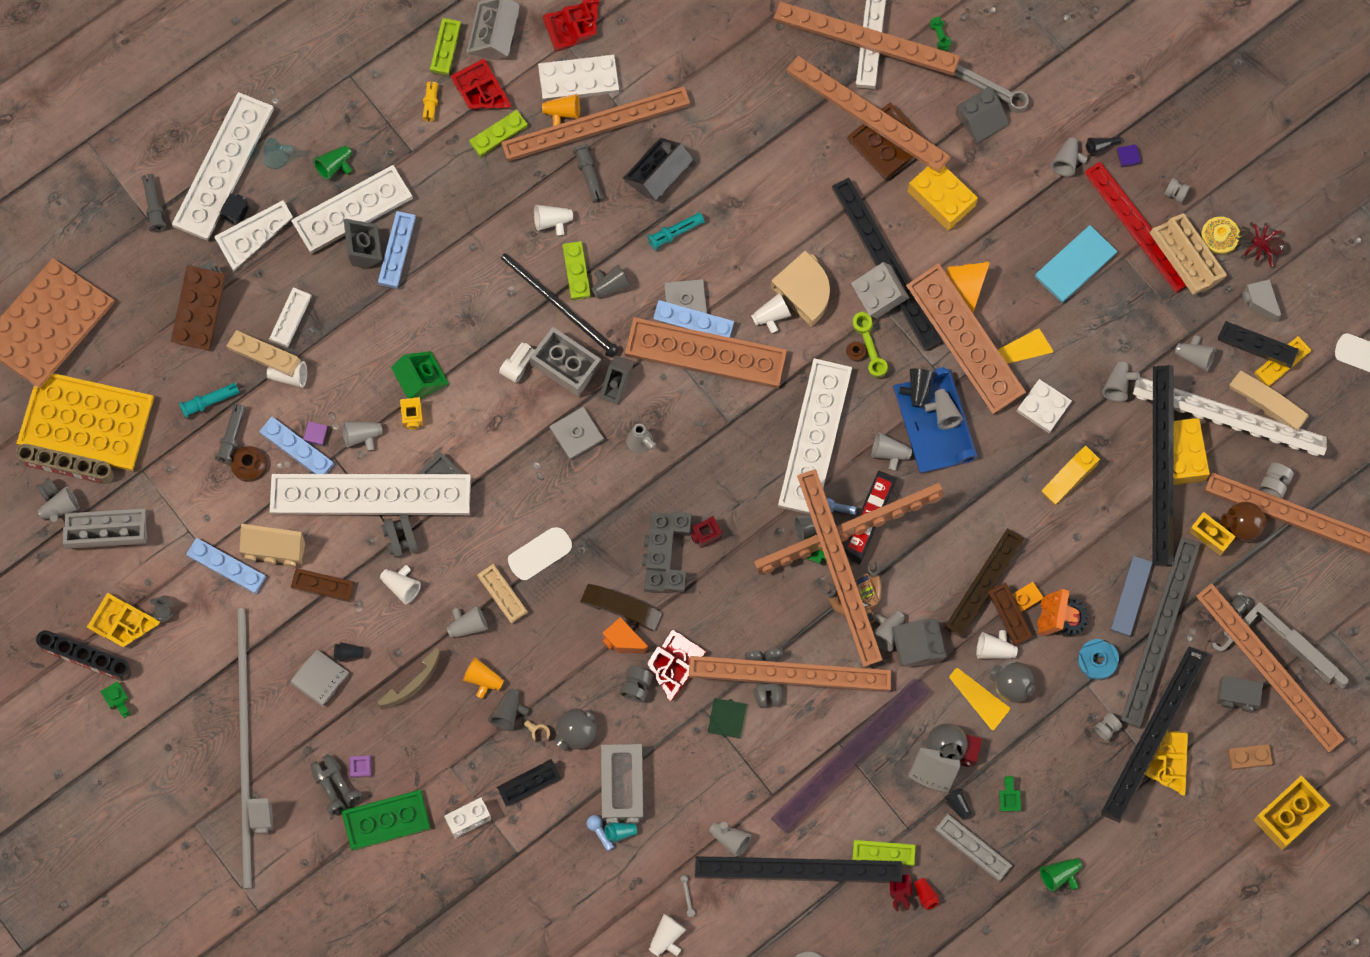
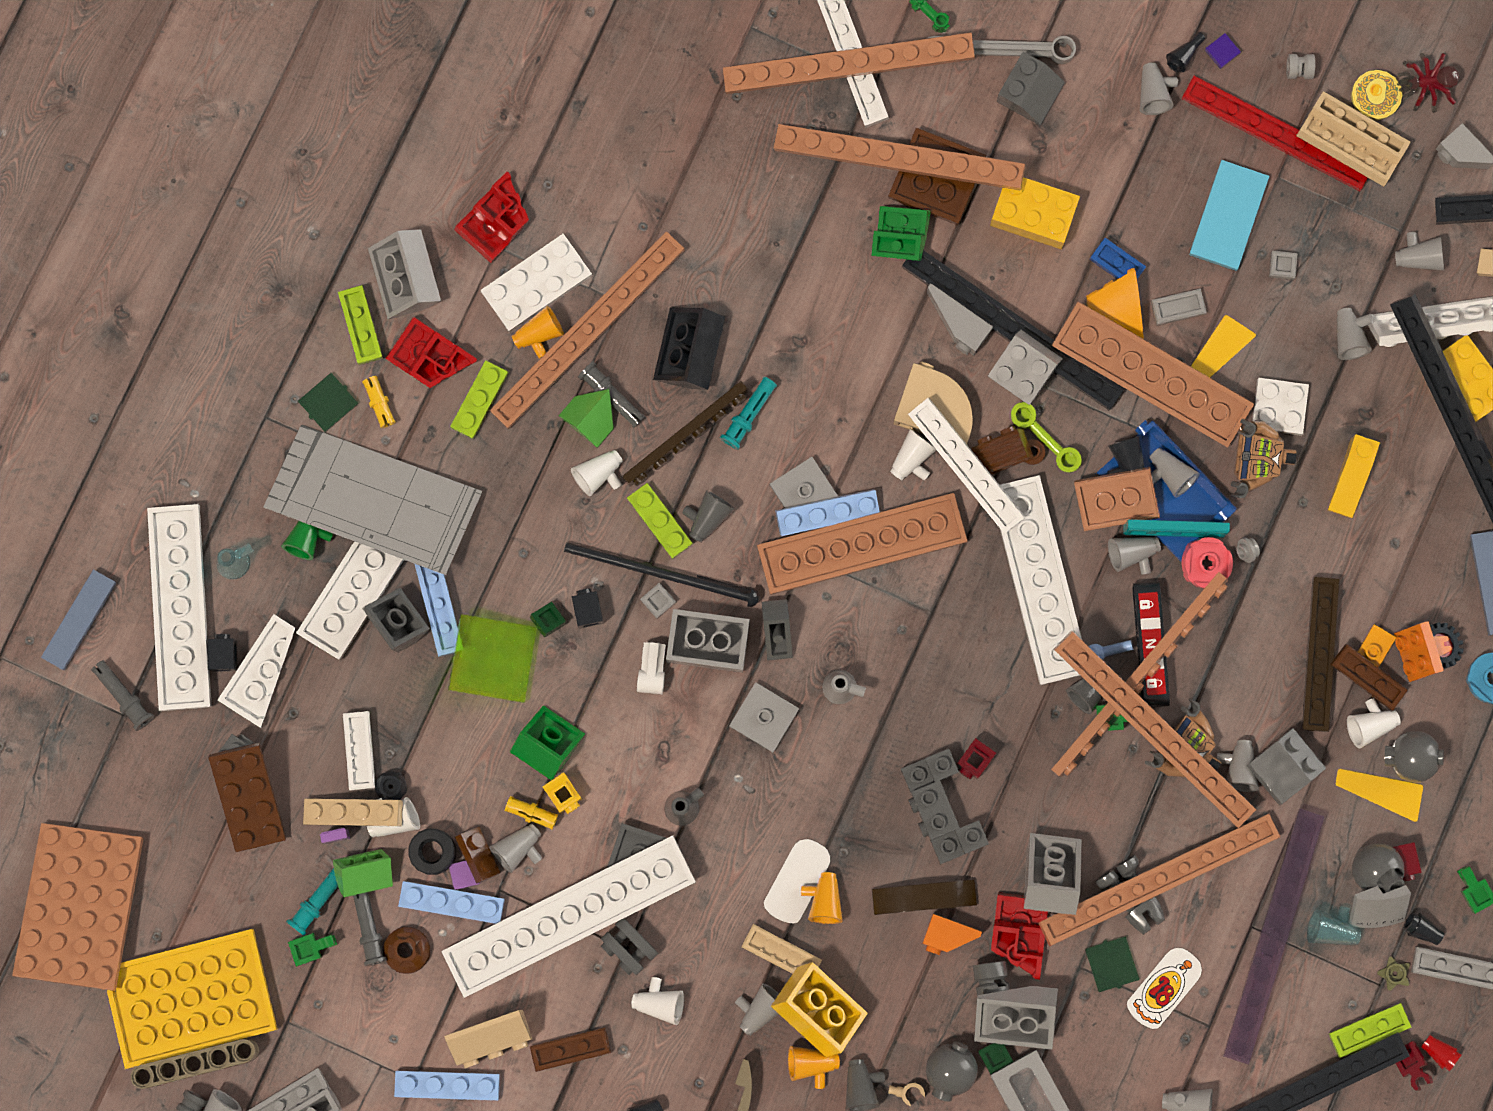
camera: 20 degrees left, 10 degrees up
(152, 142) = (78, 620): none -> sand blue tile
(183, 427) = (308, 948): none -> green plate
(242, 363) = (334, 835): none -> medium lavender tile
(248, 396) = (363, 872): none -> bright green brick
(294, 397) = (421, 839): none -> black tyre
(304, 348) = (399, 786): none -> black plate
(331, 424) = (477, 855): none -> reddish brown plate
(383, 415) = (531, 812): none -> yellow pin
(391, 160) = (373, 499): none -> light grey sticker
(396, 86) = (328, 402): none -> clear green piece
(413, 302) = (492, 658): none -> clear neon green plate
(465, 295) = (547, 619): none -> dark green plate
(488, 467) = (691, 809): none -> dark grey piece
(495, 302) = (587, 608): none -> black brick
(506, 639) = (819, 1009): none -> yellow brick
(546, 321) = (658, 600): none -> light grey tile
(551, 575) = (826, 901): none -> light orange piece
(567, 180) = (590, 416): none -> bright green slope
(611, 735) = (995, 1057): none -> dark green plate
(630, 221) = (695, 428): none -> dark brown plate
(640, 714) = (1017, 1017): none -> light grey slope
(716, 629) = (1052, 874): none -> light grey brick
(755, 753) = (1164, 988): none -> sticker
(804, 333) = (966, 465): none -> white plate
(834, 338) = (1003, 451): none -> reddish brown brick
(842, 164) = (900, 233): none -> green slope
(853, 246) = (963, 325): none -> light grey slope
(894, 772) = (1331, 930): none -> clear light blue piece
(897, 408) = (1116, 498): none -> nougat tile
(923, 819) = (1401, 970): none -> olive plate
(927, 447) = (1176, 528): none -> teal tile
(936, 470) = (1196, 552): none -> coral plate
(970, 488) = (1247, 549): none -> light grey plate
(980, 252) = (1115, 260): none -> blue plate
(1008, 306) = (1178, 307): none -> light grey tile
(1011, 428) = (1259, 456): none -> torso
(1096, 314) = (1283, 265): none -> light grey tile

